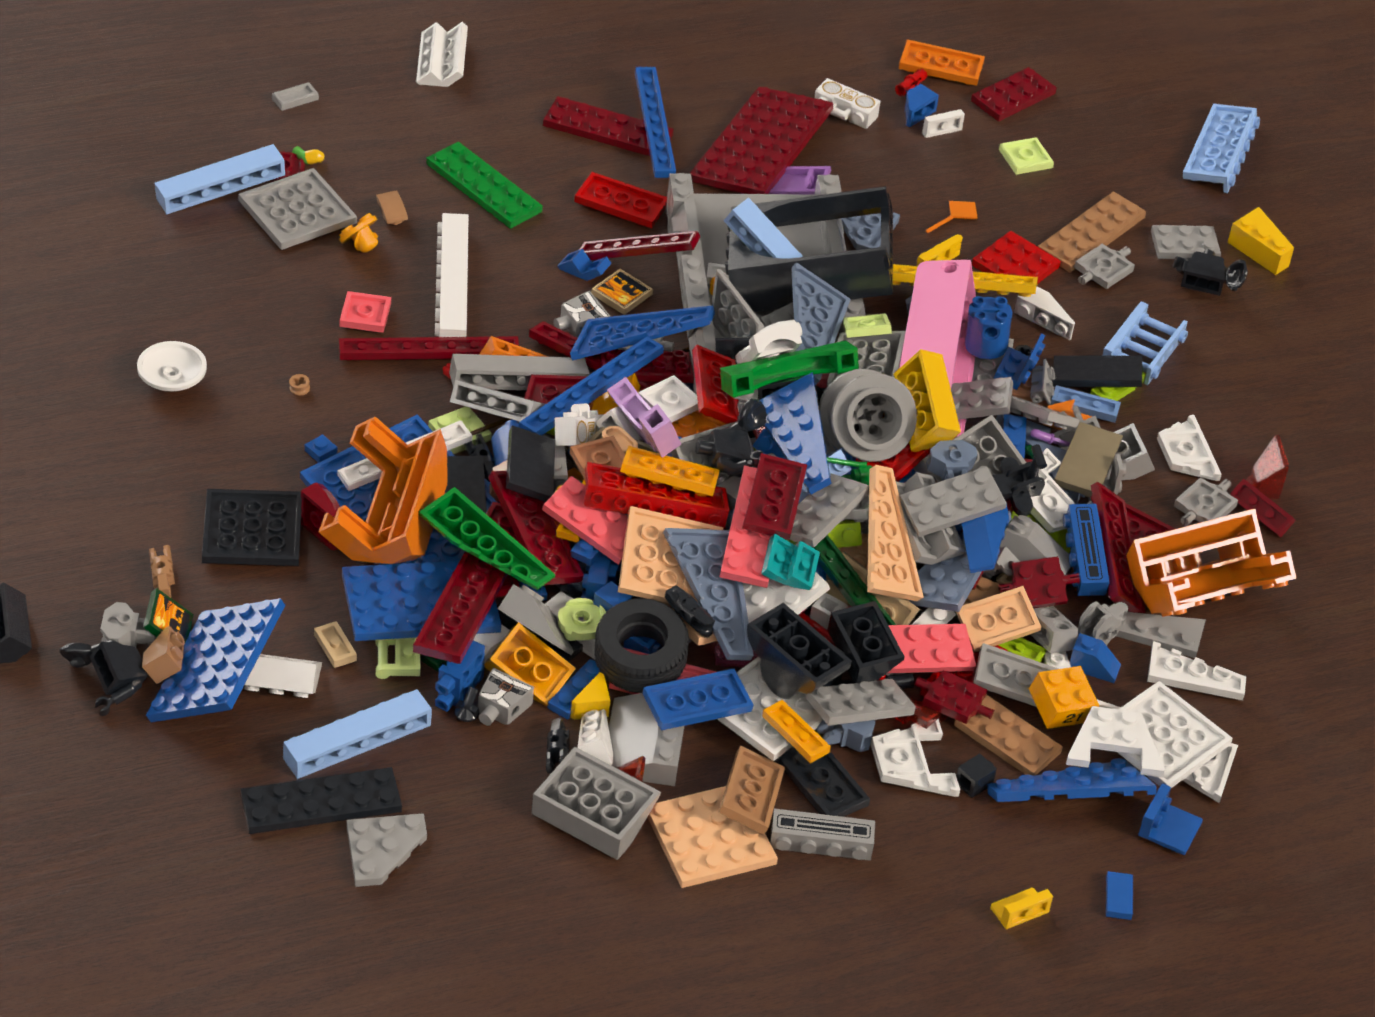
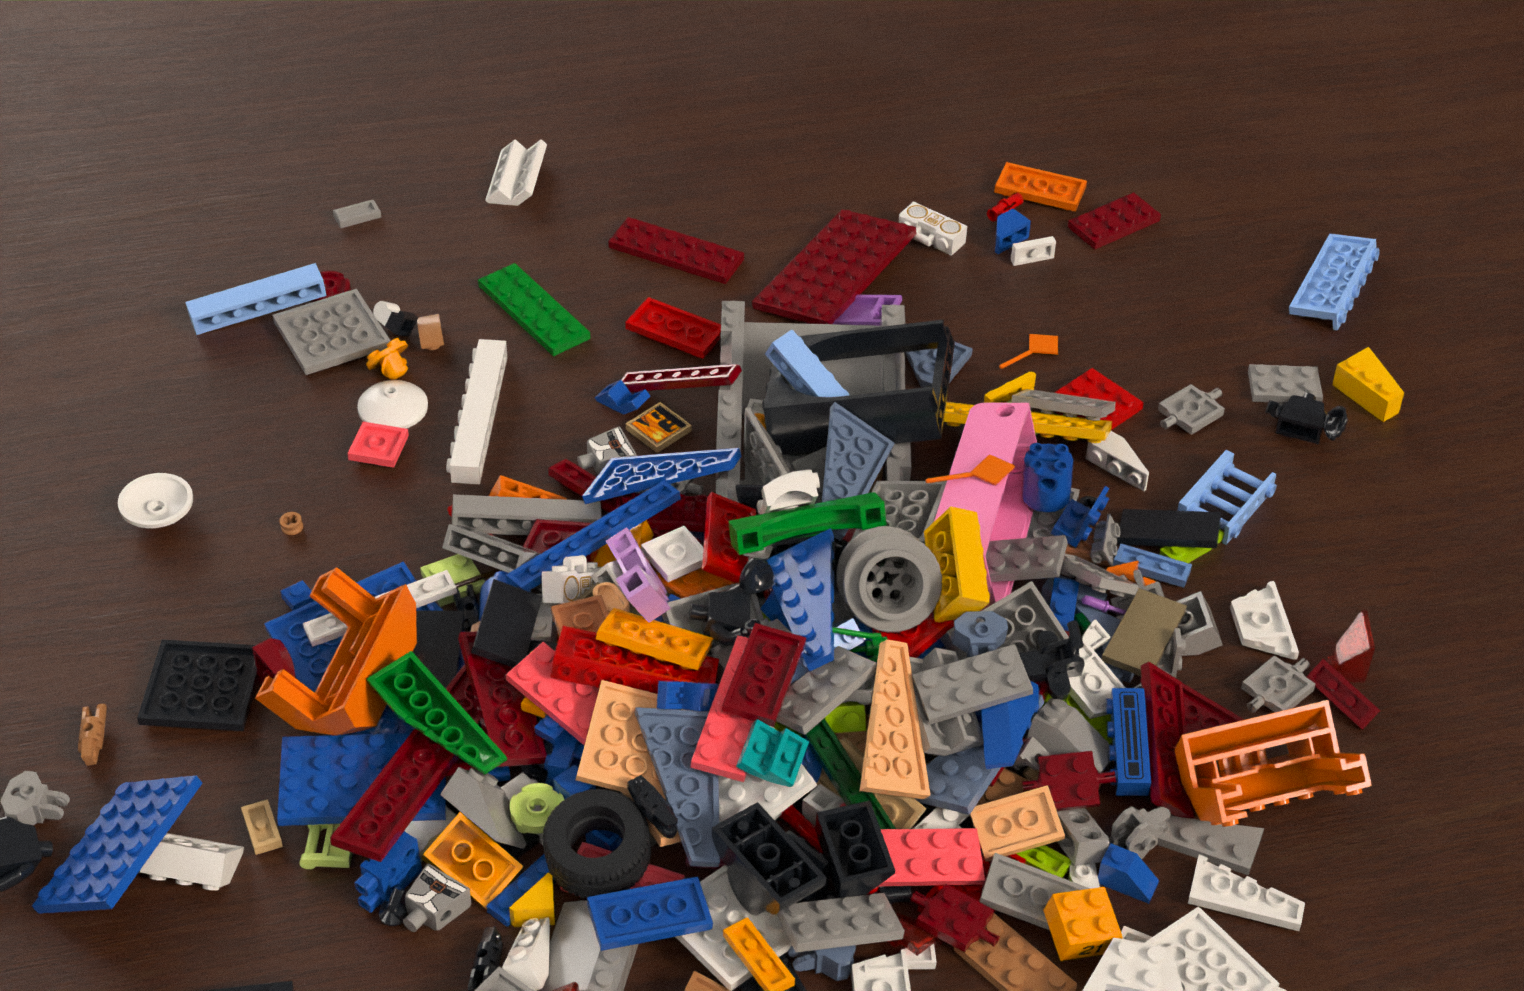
camera: 10 degrees right, 0 degrees up
(164, 612) = (79, 793): tile -> none
(164, 655) = (64, 835): medium nougat slope -> none
(309, 157) = (357, 276): yellow arm -> none
(357, 733) = (260, 937): light blue brick -> none
(359, 198) = (395, 320): none -> black leg
(369, 274) = (393, 404): none -> white dish
(413, 347) = (421, 484): dark red plate -> none
(655, 122) = (723, 245): blue plate -> none
(707, 517) = (686, 695): none -> blue slope
(866, 325) = (906, 473): yellowish green tile -> none
(944, 319) = (990, 470): none -> orange piece
(997, 263) = (1068, 404): none -> light grey plate
(1026, 155) = (1119, 286): yellowish green tile -> none
(1094, 227) = (1186, 365): medium nougat plate -> none

